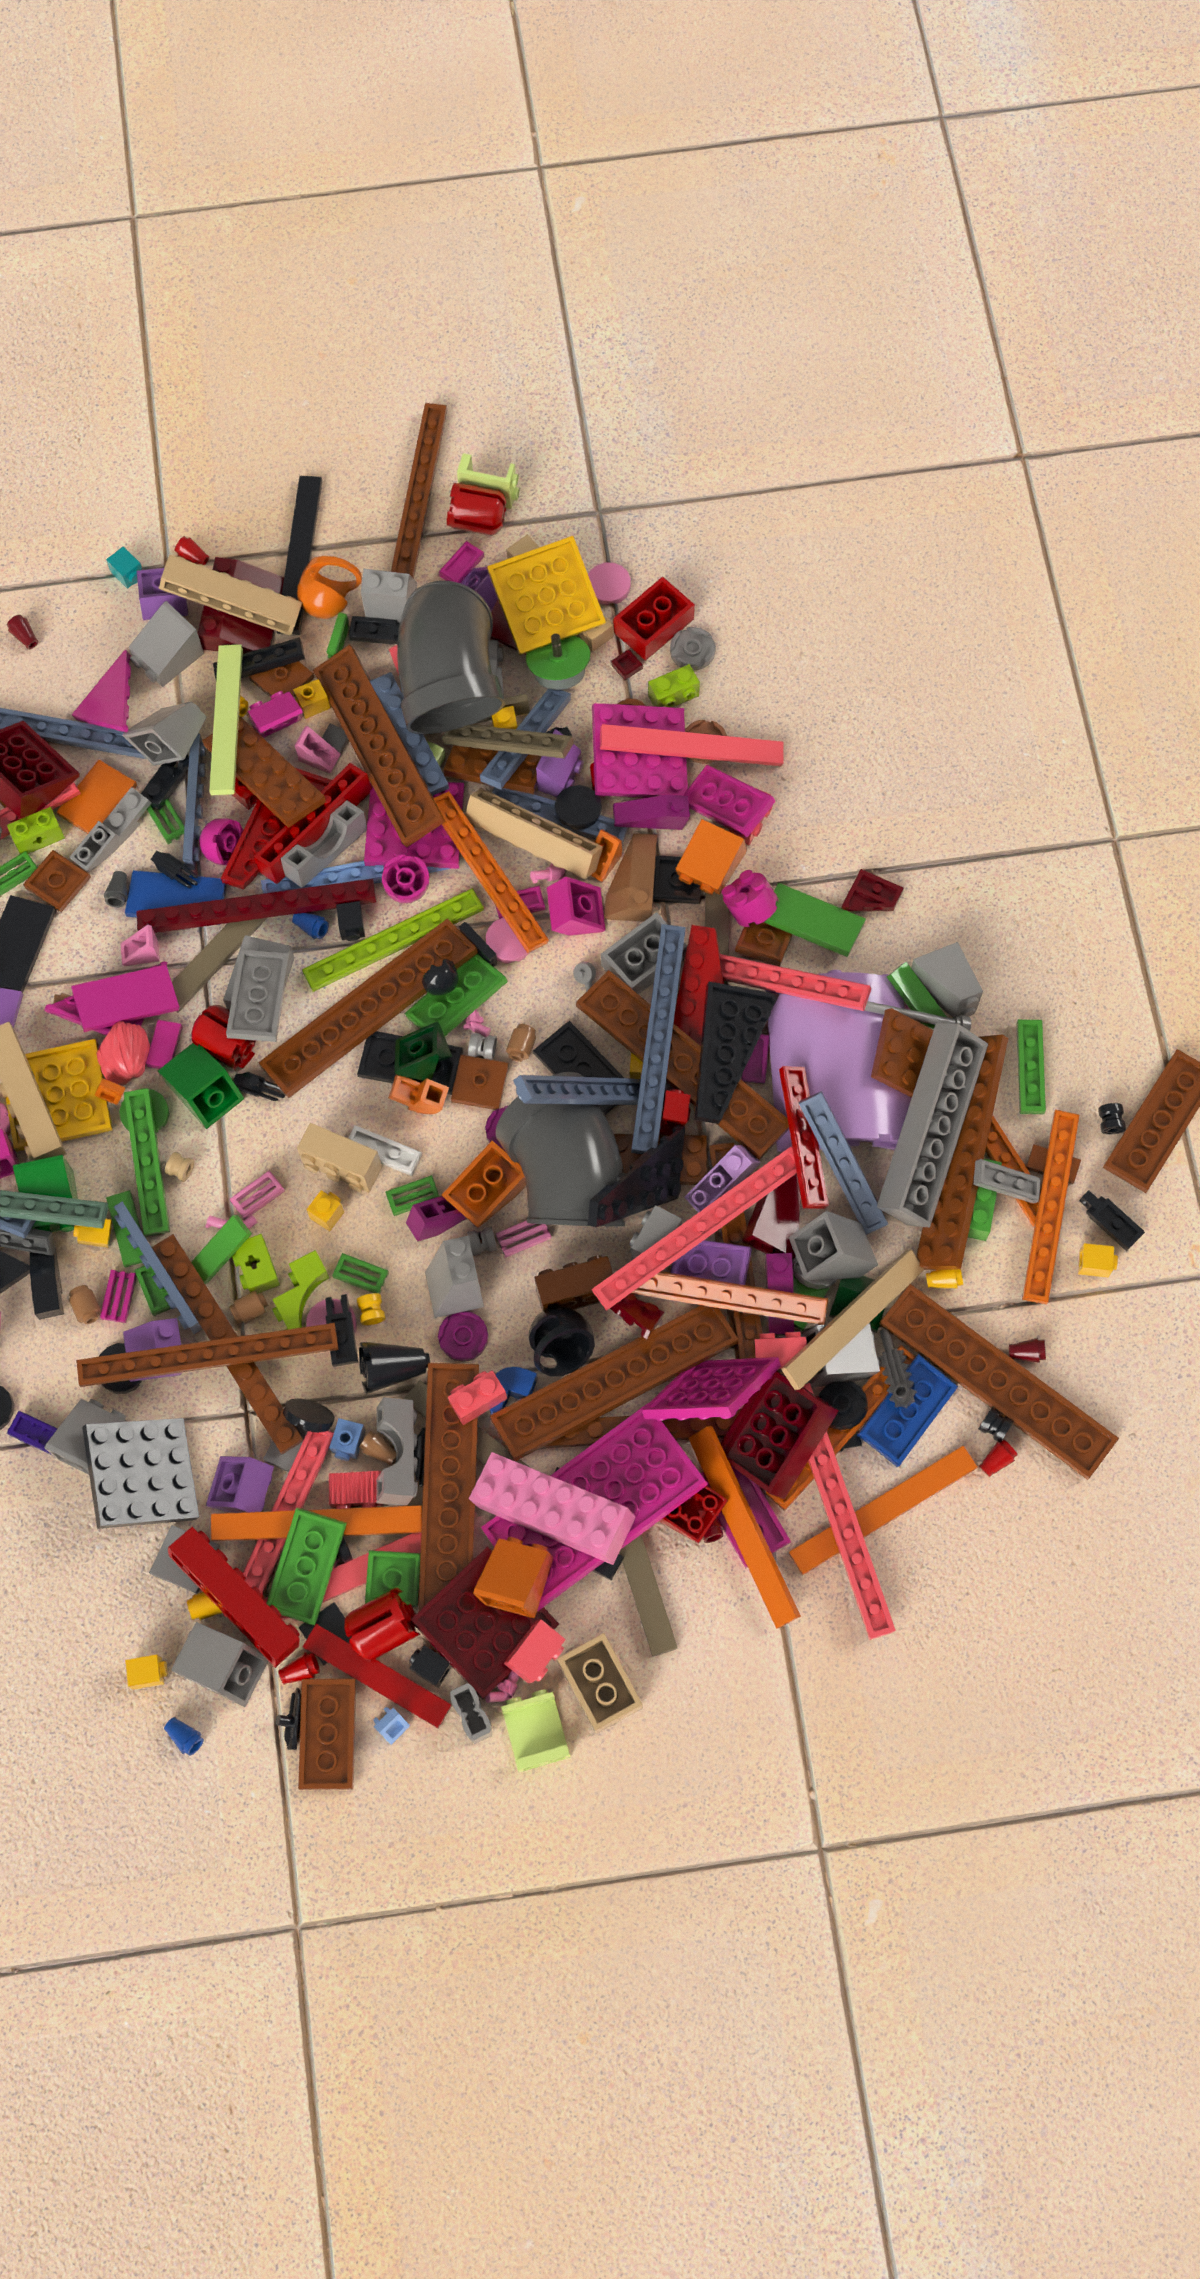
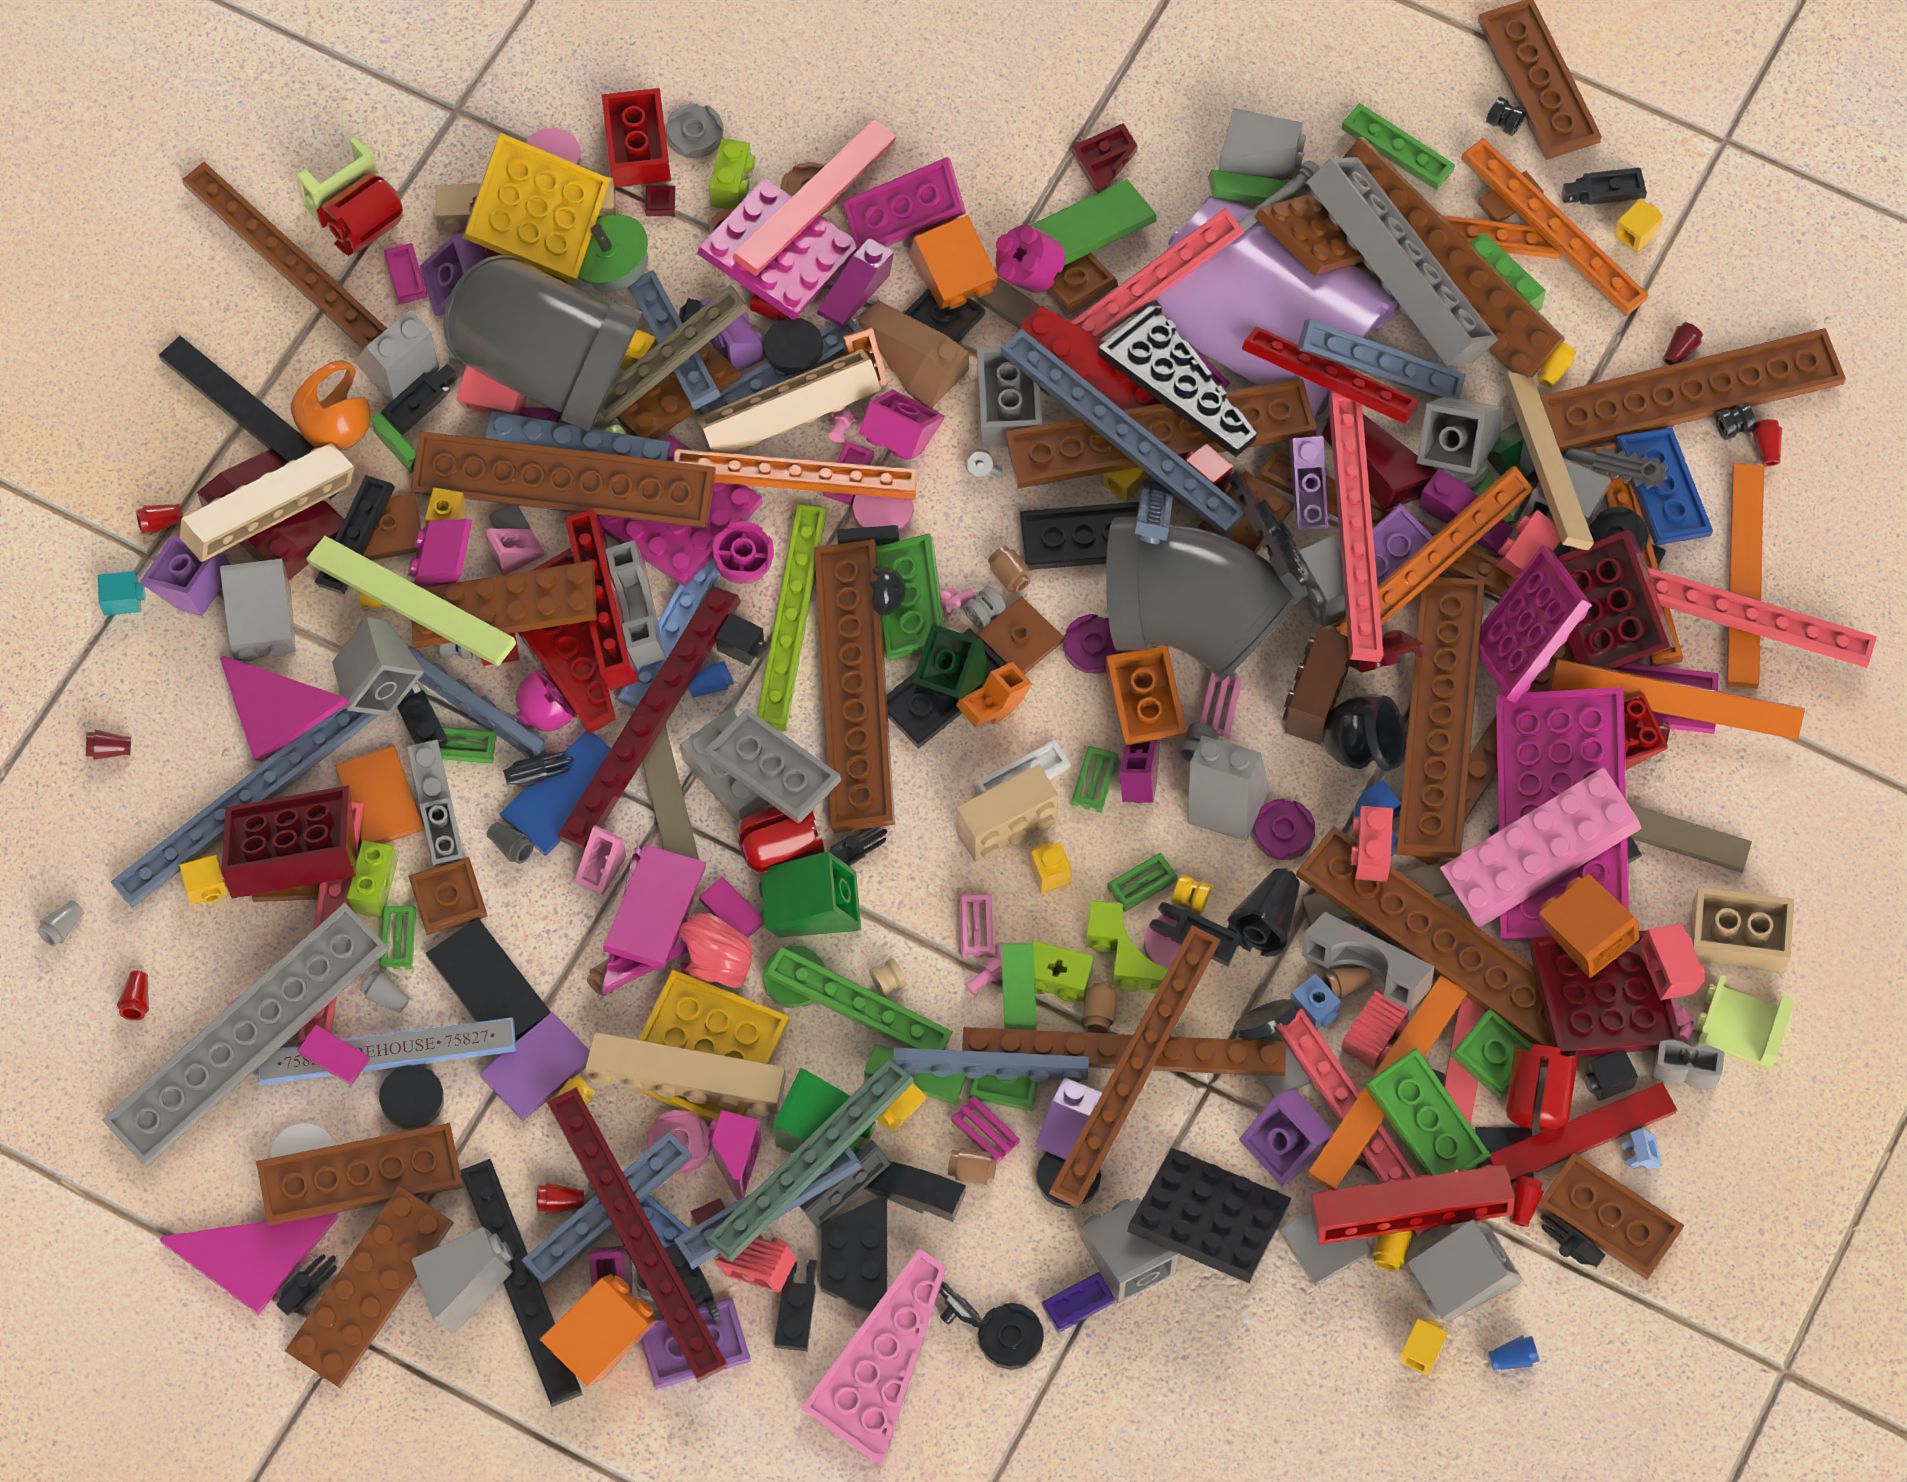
camera: 55 degrees left, 5 degrees down
(109, 1091) = (752, 987): orange tile -> none
(1007, 1181) = (1506, 240): light grey tile -> none

